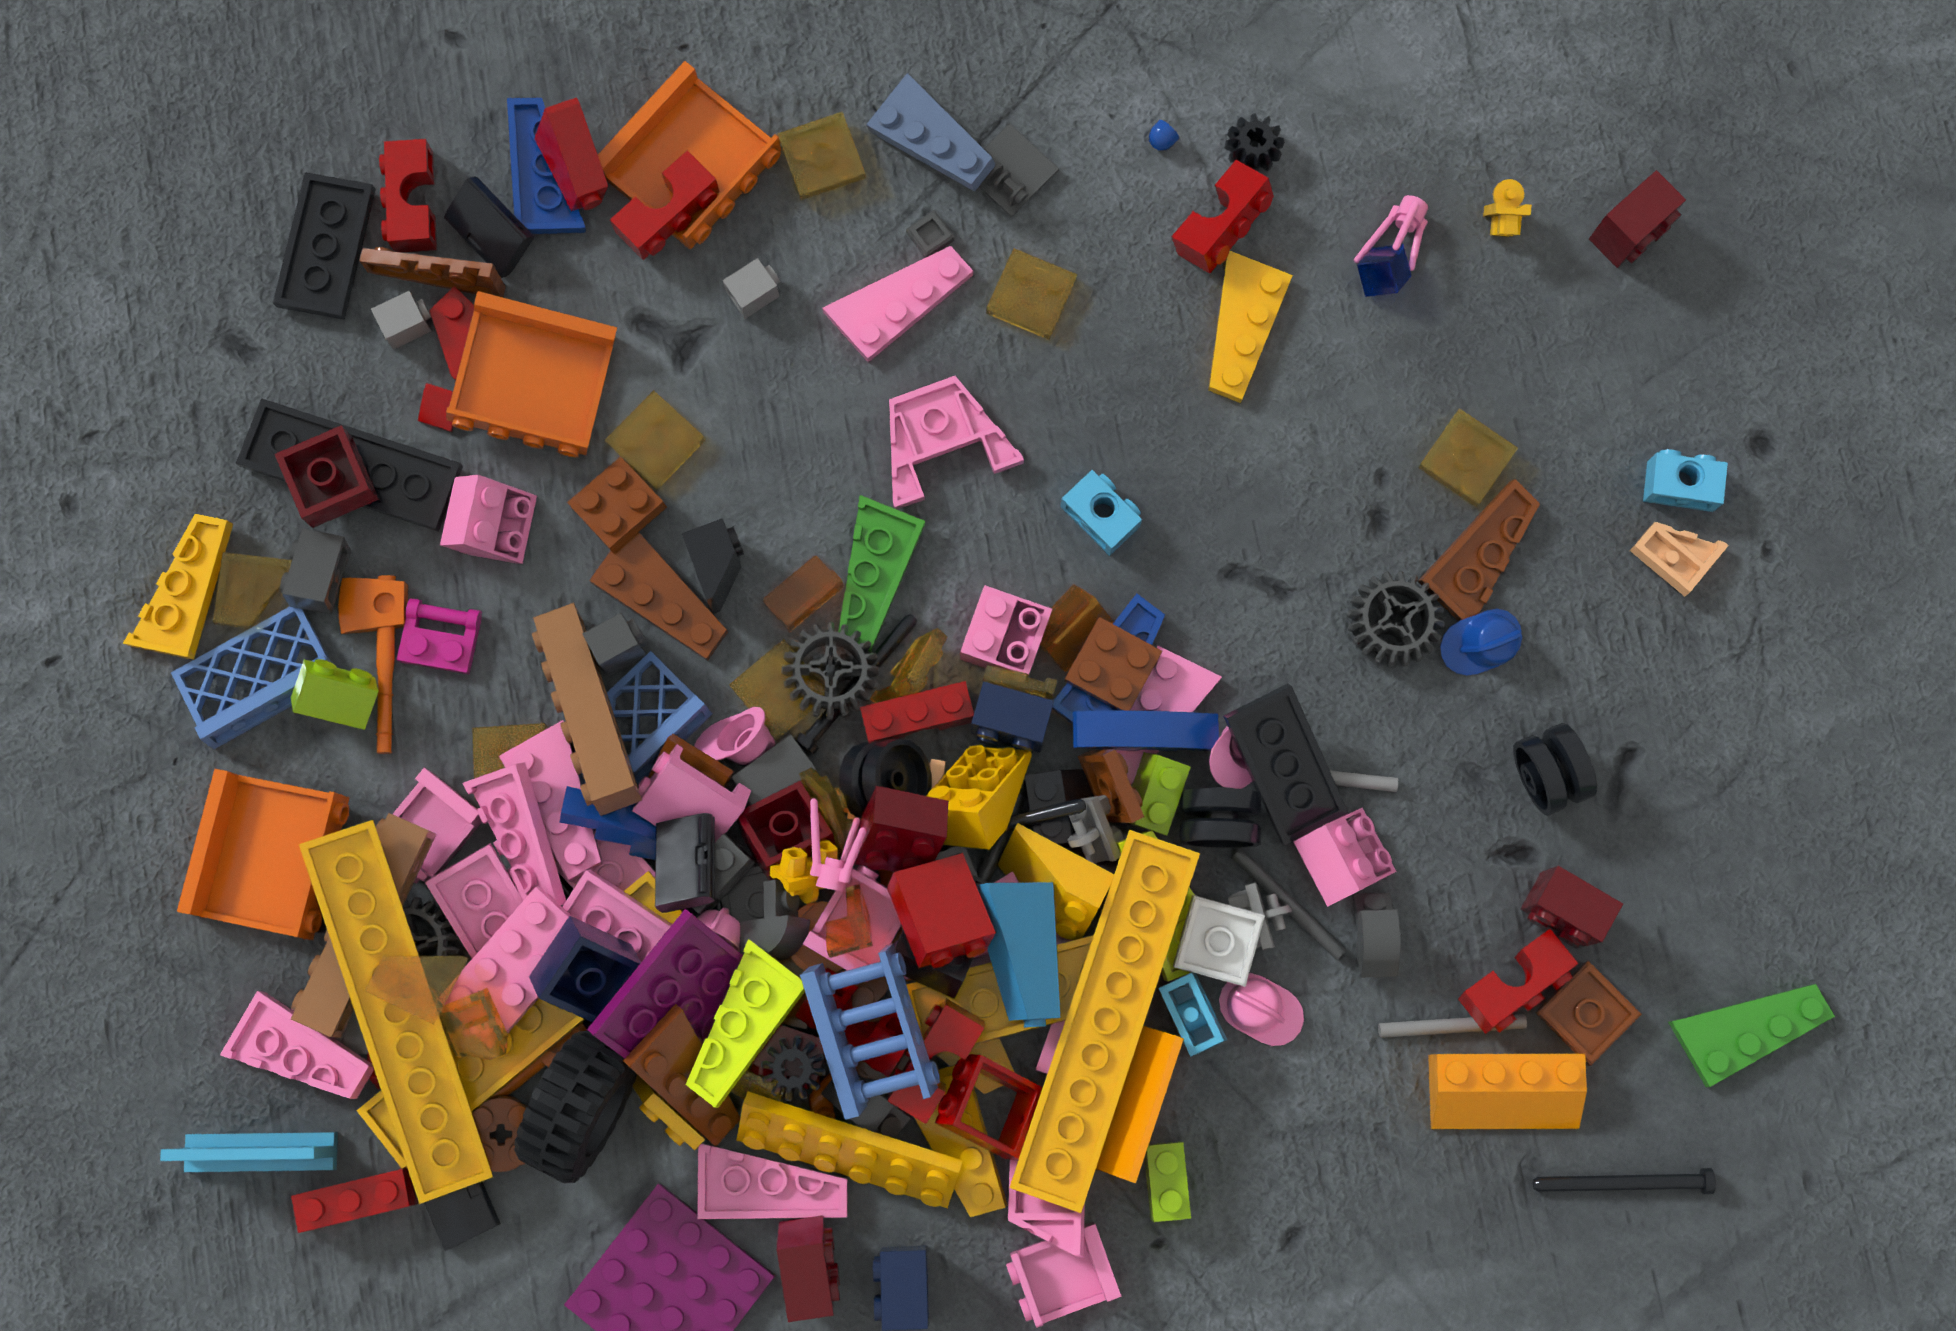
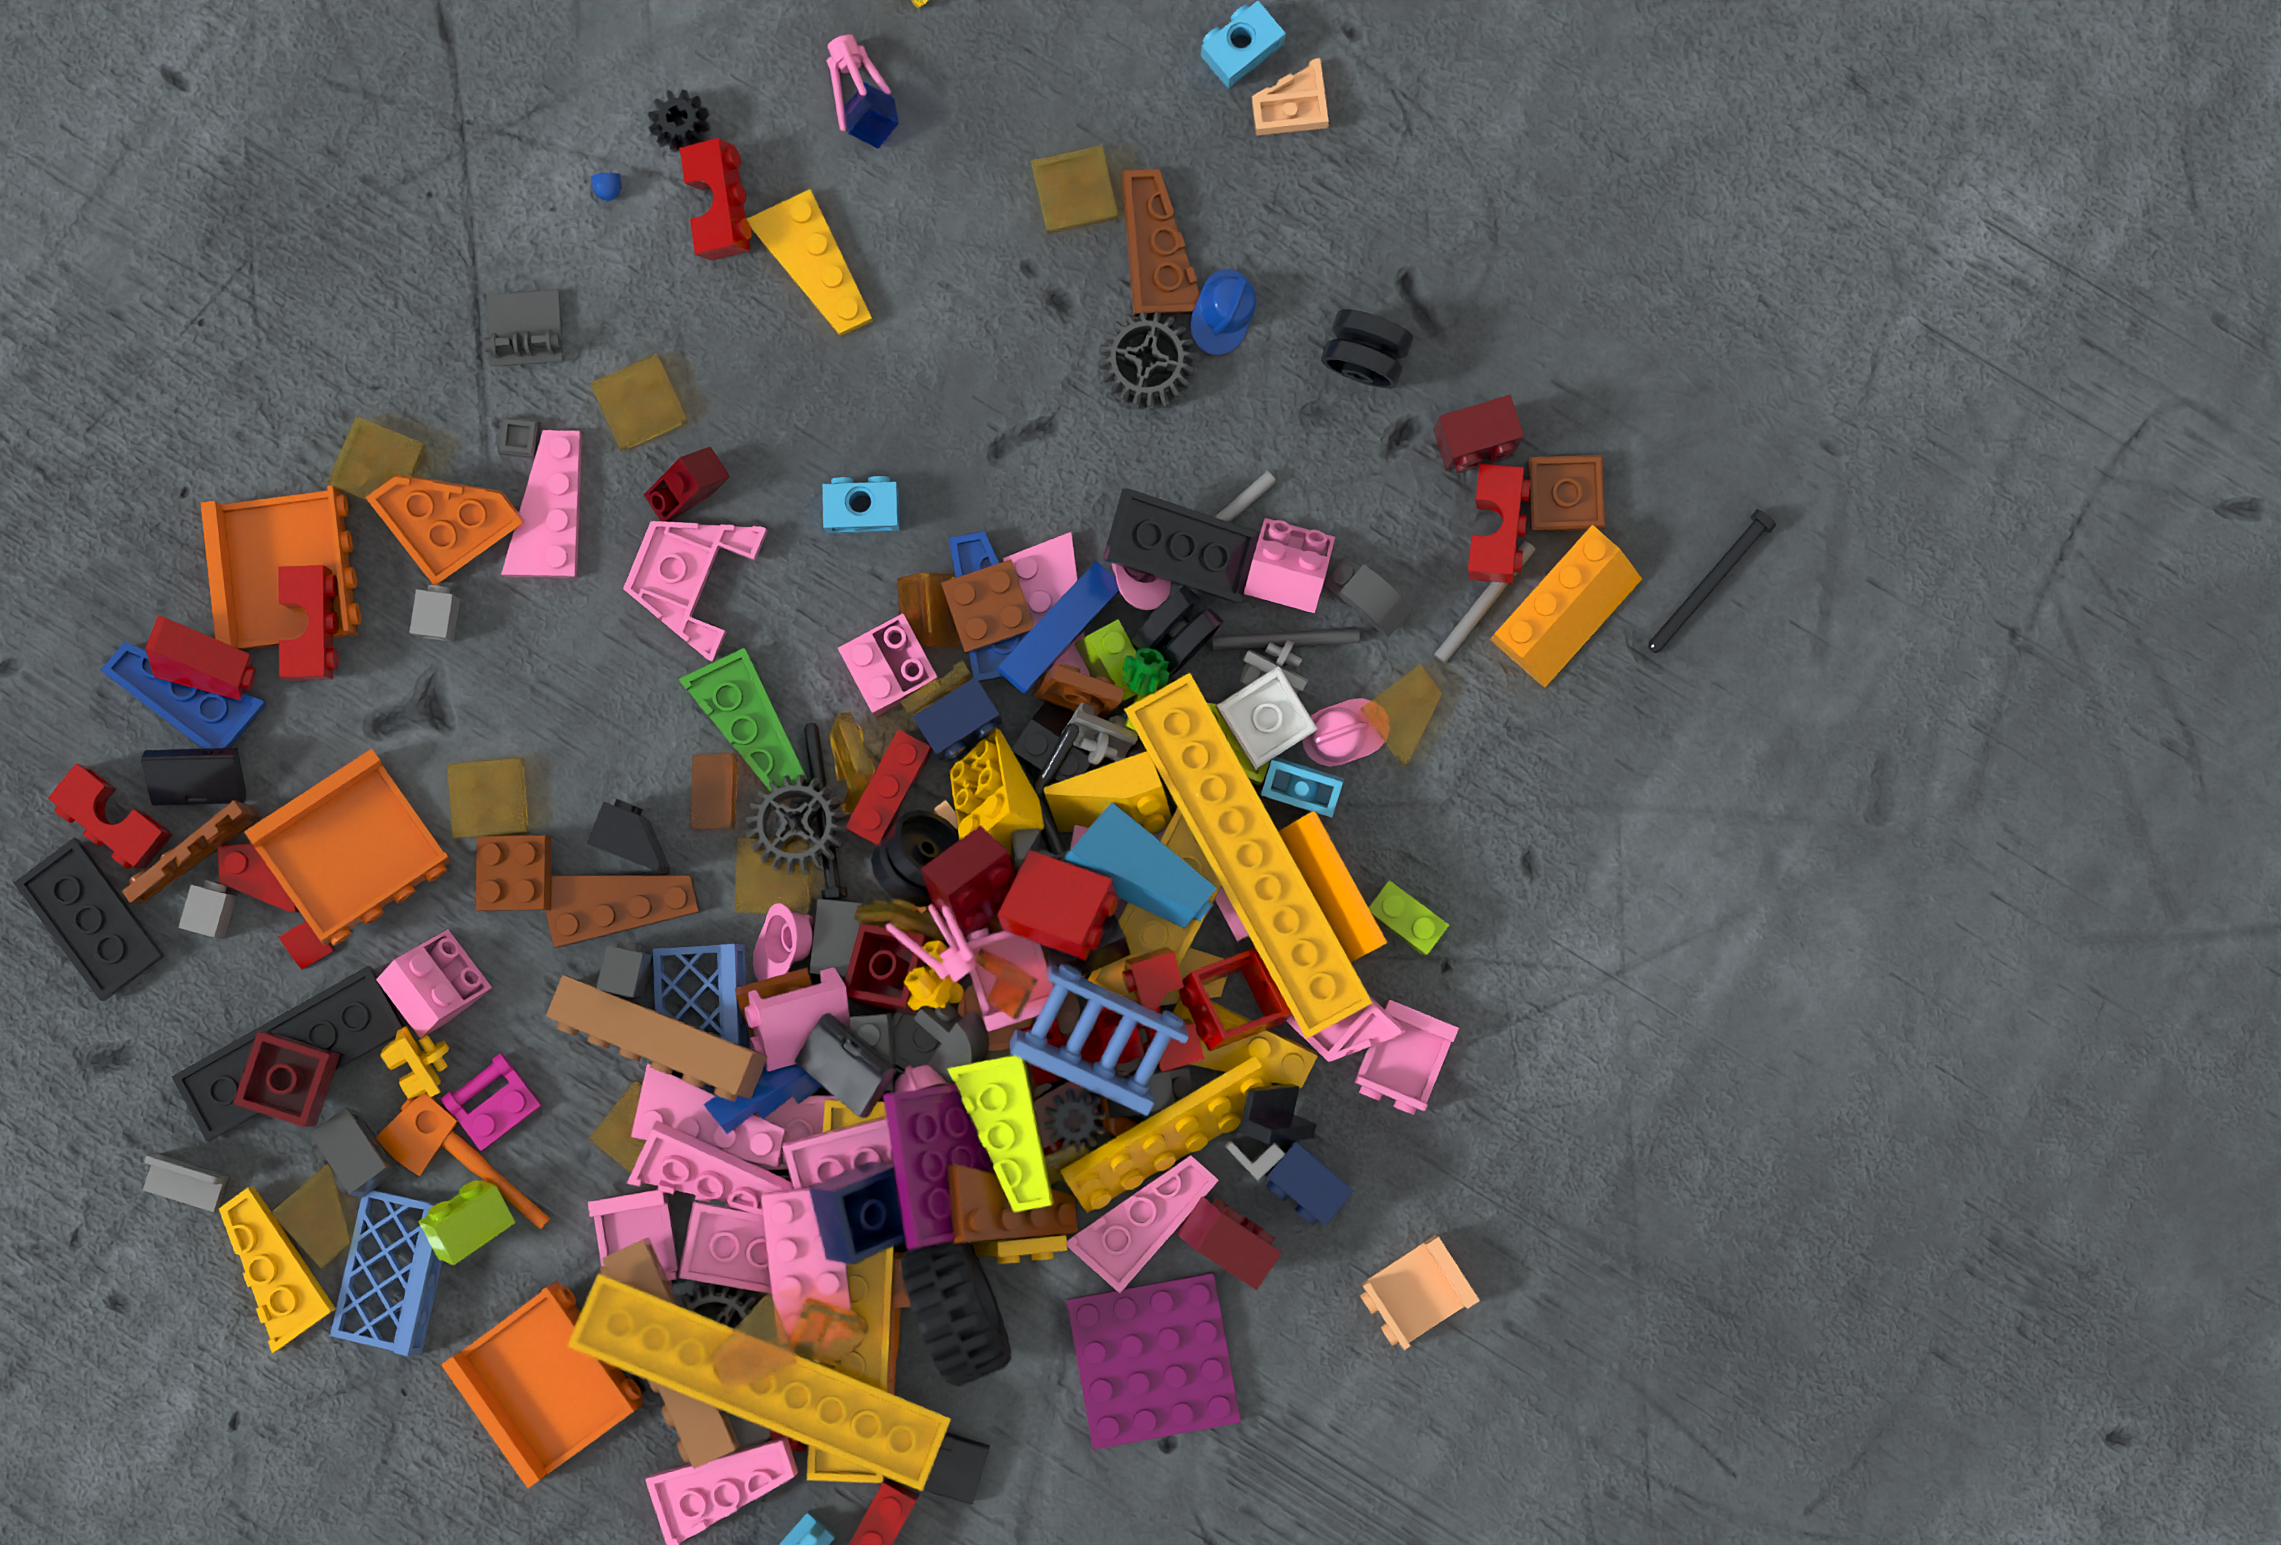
camera: 45 degrees left, 5 degrees up
(194, 474) = (185, 1182): none -> light grey panel
(416, 571) = (423, 1076): none -> yellow hips
(496, 1111) = (915, 1365): dark orange plate -> none
(822, 234) = (443, 521): none -> orange plate
(885, 1237) = (1262, 1162): none -> light grey panel
(927, 132) = (436, 365): sand blue wing -> none
(927, 1215) = (1271, 1115): none -> black panel
(963, 843) = (1021, 843): none -> dark grey slope
(1004, 377) = (686, 484): none -> dark red slope
(1171, 820) = (1145, 671): none -> green gear
(1316, 1039) = (1404, 711): none -> clear yellow wing
(1740, 1034) = (1682, 396): bright green wing -> none

